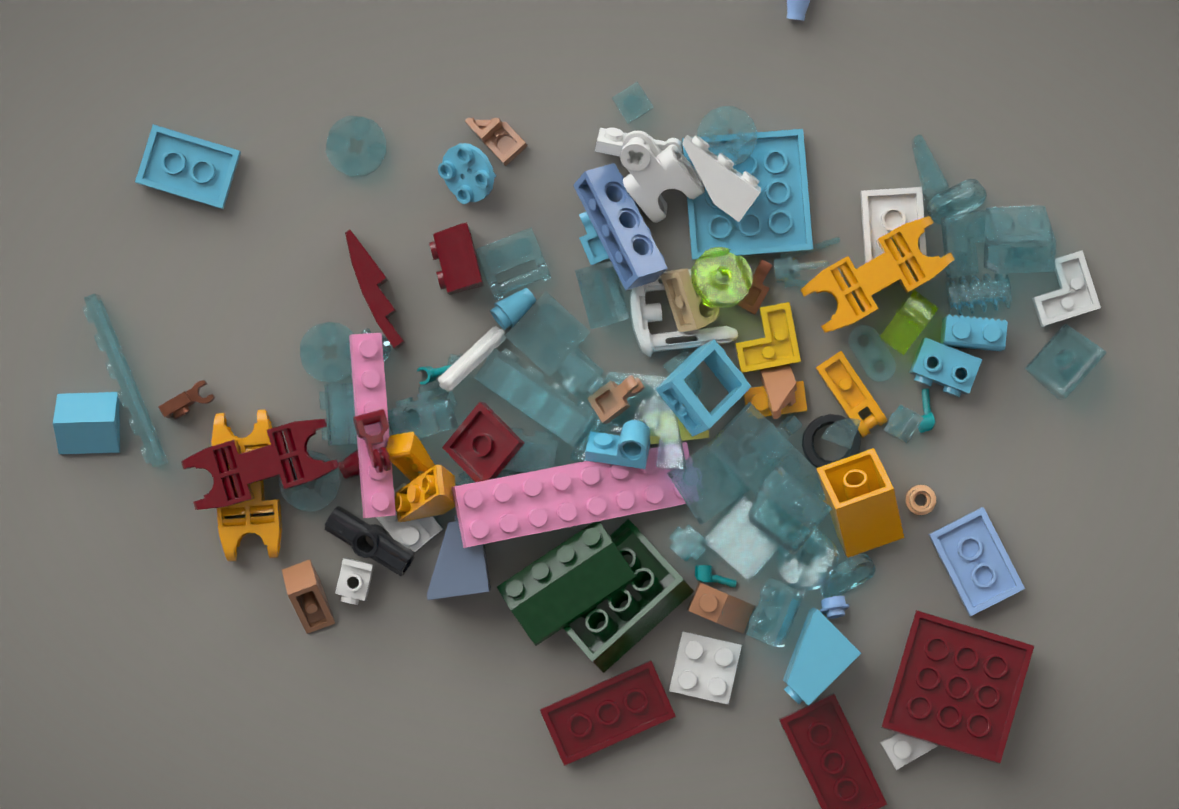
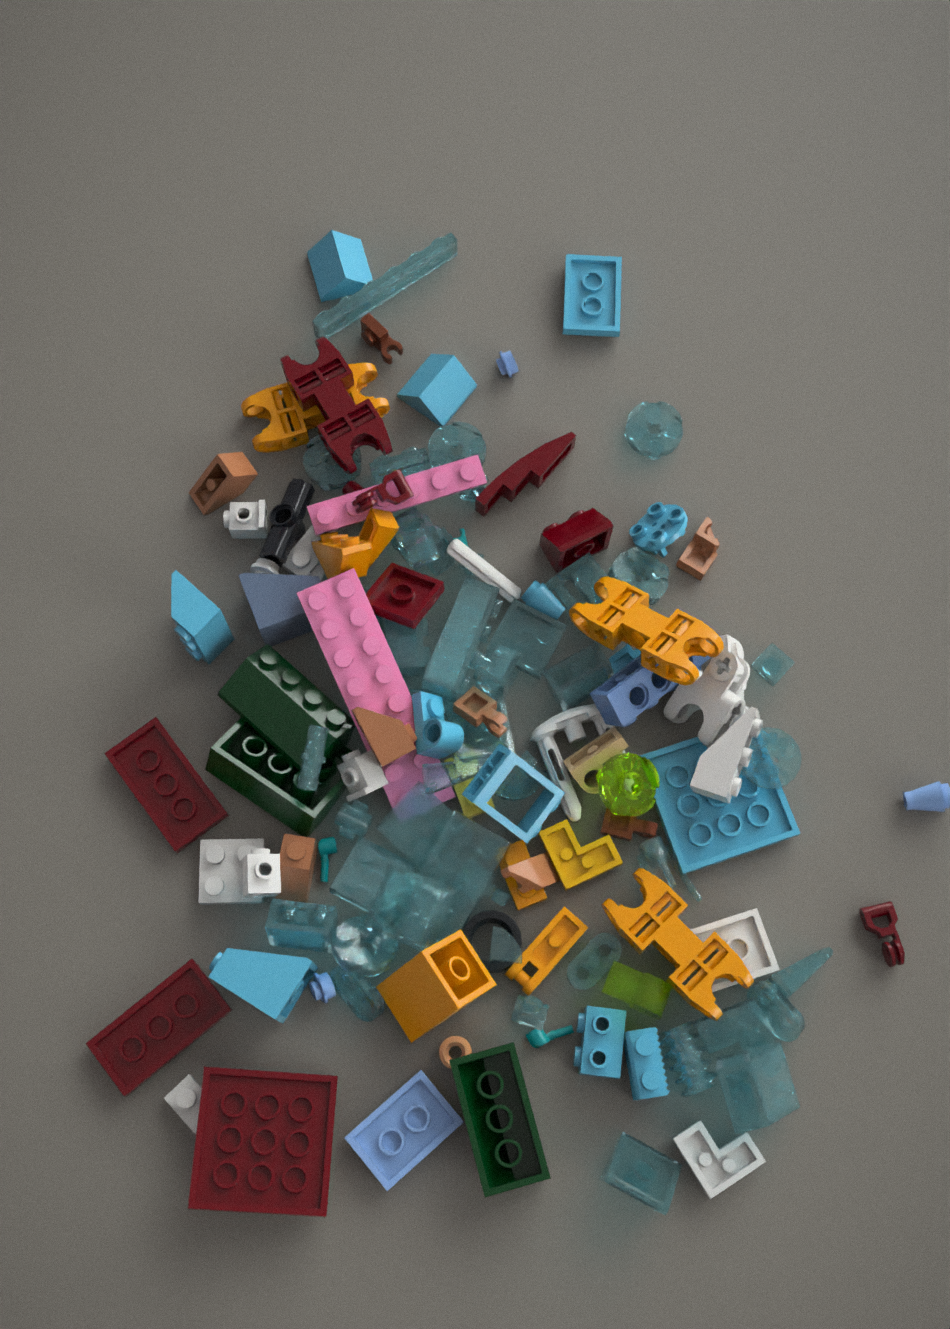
camera: 75 degrees right, 15 degrees down
(245, 276) = (507, 363): none -> light blue plate
(253, 355) = (438, 388): none -> medium azure slope
(414, 574) = (264, 566): none -> white plate
(461, 650) = (198, 620): none -> medium azure slope
(513, 191) = (647, 566): none -> clear light blue plate
(597, 207) = (657, 637): none -> light orange piece
(622, 494) = (385, 735): none -> nougat slope
(627, 567) = (312, 757): none -> clear light blue pin
(648, 525) = (361, 773): none -> white brick
(722, 639) = (261, 874): none -> white brick
(931, 78) = (893, 951): none -> dark red piece
(990, 475) = (499, 1119): none -> dark green slope

